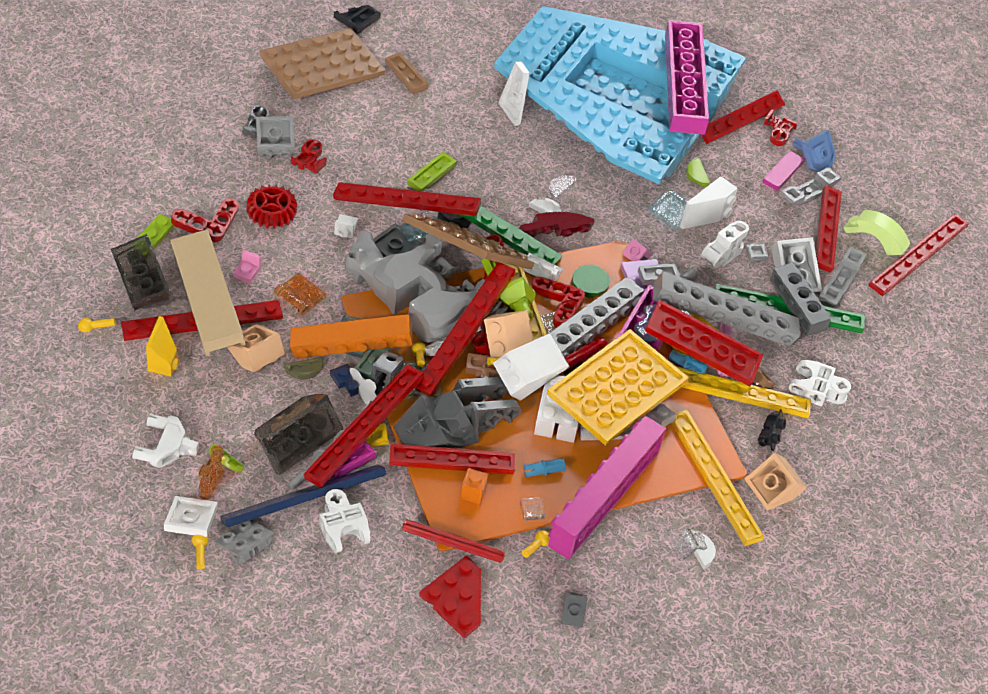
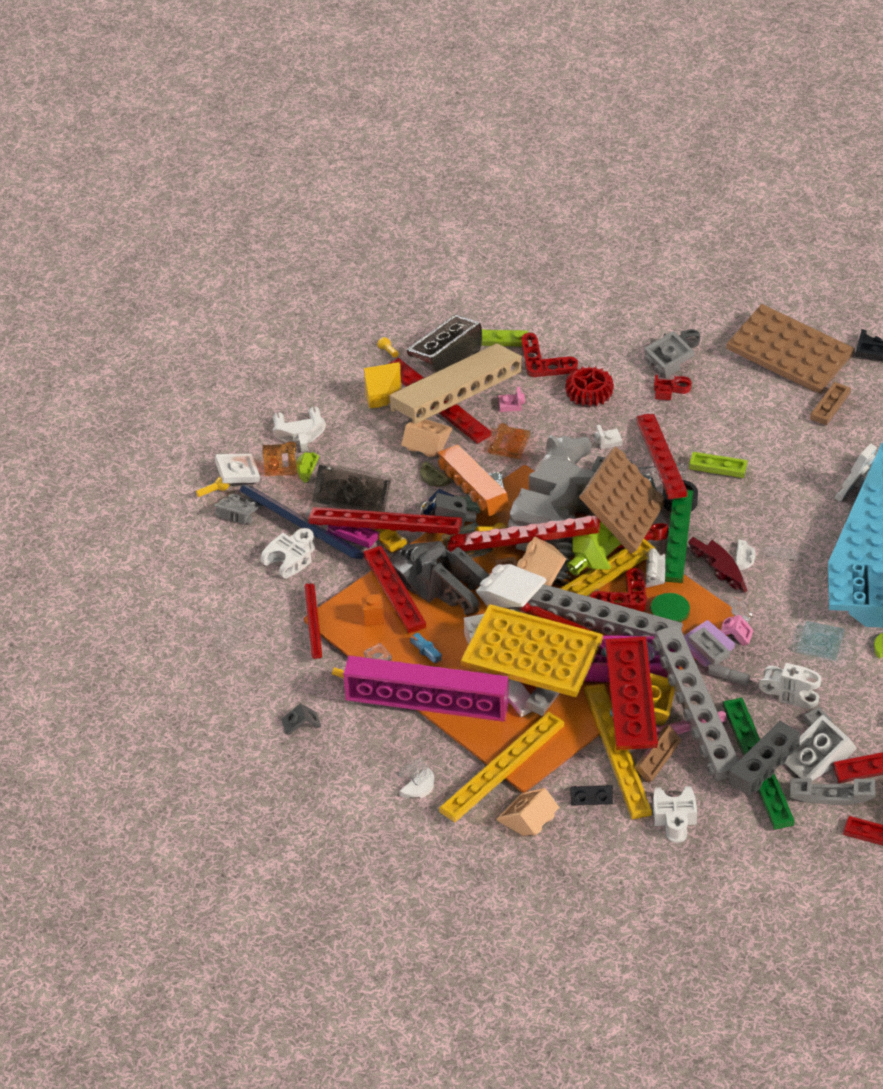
camera: 75 degrees right, 5 degrees down
(457, 596) = (267, 646): red plate -> none
(710, 204) = (836, 655): white slope -> none

